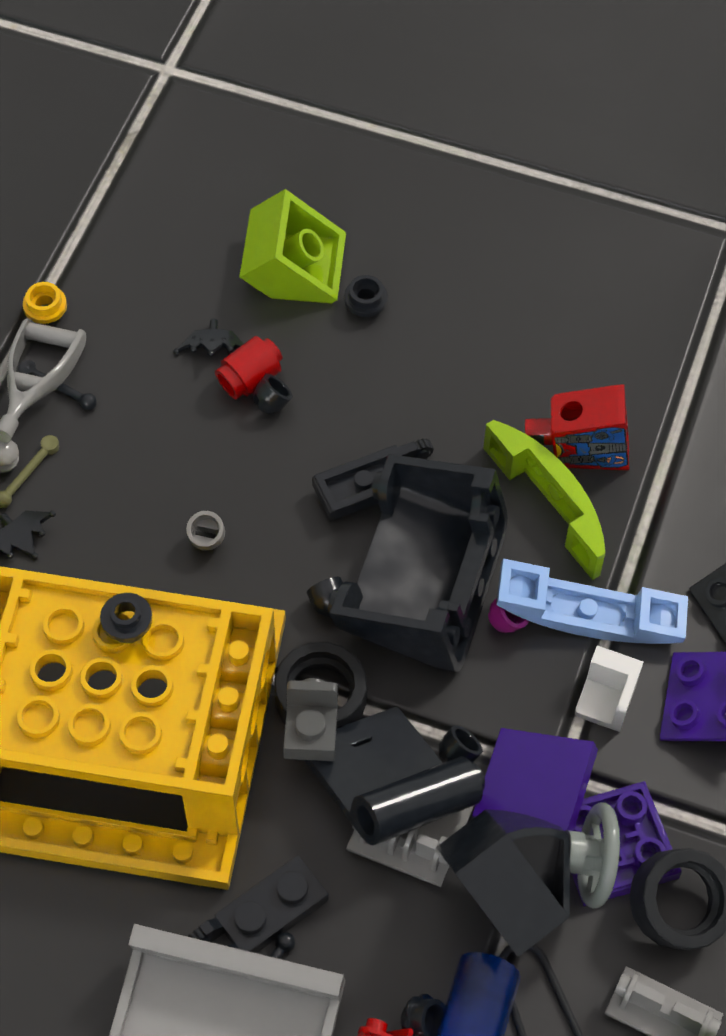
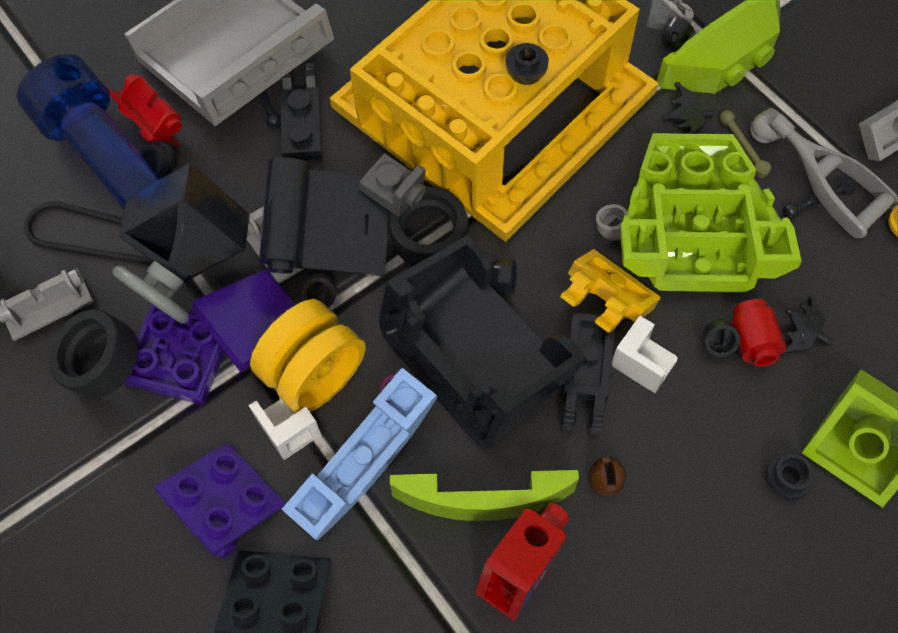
camera: 125 degrees right, 5 degrees up
(152, 451) = (704, 218): none -> lime wedge
(279, 496) = (622, 292): none -> yellow plate
(331, 442) = (643, 358): none -> white panel
(467, 427) = (598, 480): none -> reddish brown hinge
(545, 684) = (307, 355): none -> yellow wheel

